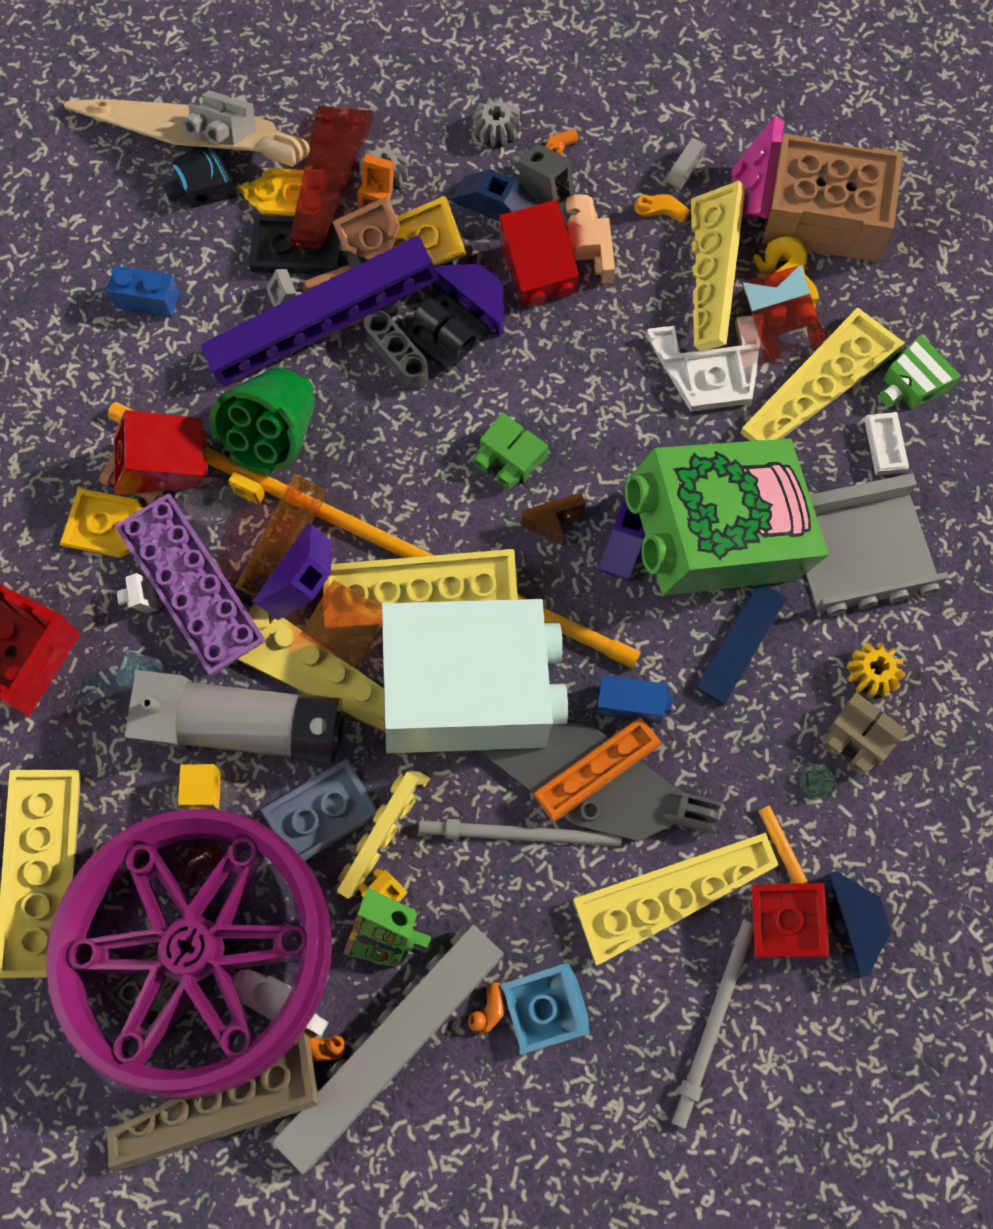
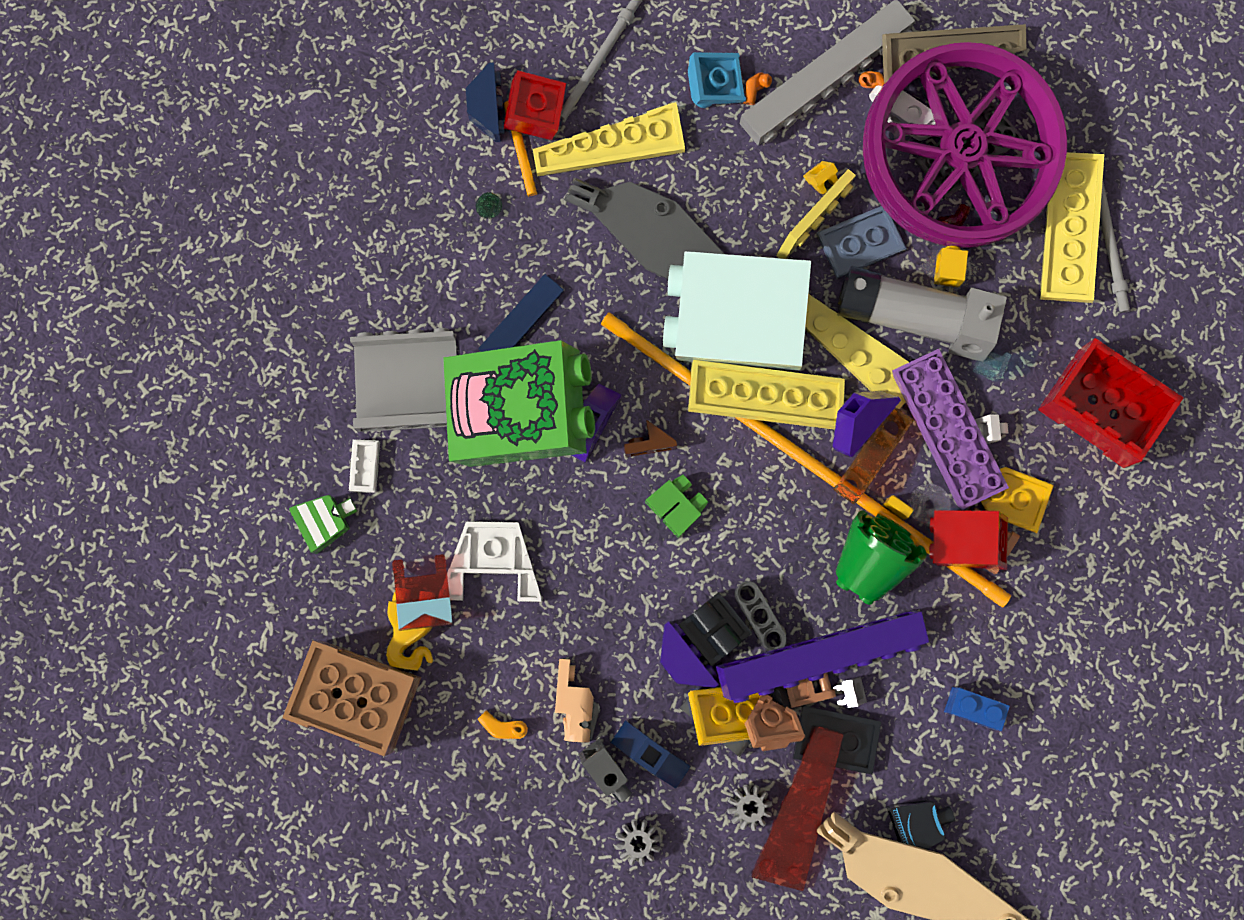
camera: 175 degrees left, 10 degrees up
(220, 119) = (896, 874): light grey hips -> none
(274, 192) = (852, 798): yellow tile -> none
(344, 624) = (829, 375): clear orange tile -> none
(376, 180) = (760, 780): orange slope -> none
(384, 931) = (833, 143): bright green torso -> none
(454, 829) = (763, 213): light grey bar -> none
(538, 253) = (623, 684): red slope -> none
(561, 140) = (585, 813): orange arm -> none
(597, 769) = (651, 235): orange tile -> none
(633, 699) = (614, 283): blue brick -> none
(686, 163) = (470, 768): light grey beam -> none
(717, 227) = (459, 688): light yellow wing -> none
(758, 170) = (415, 733): dark pink wing -> none
(831, 370) = (373, 551): light yellow wing -> none
(871, 747) = (444, 234): dark tan hips -> none
(887, 664) = (427, 287): yellow gear -> none

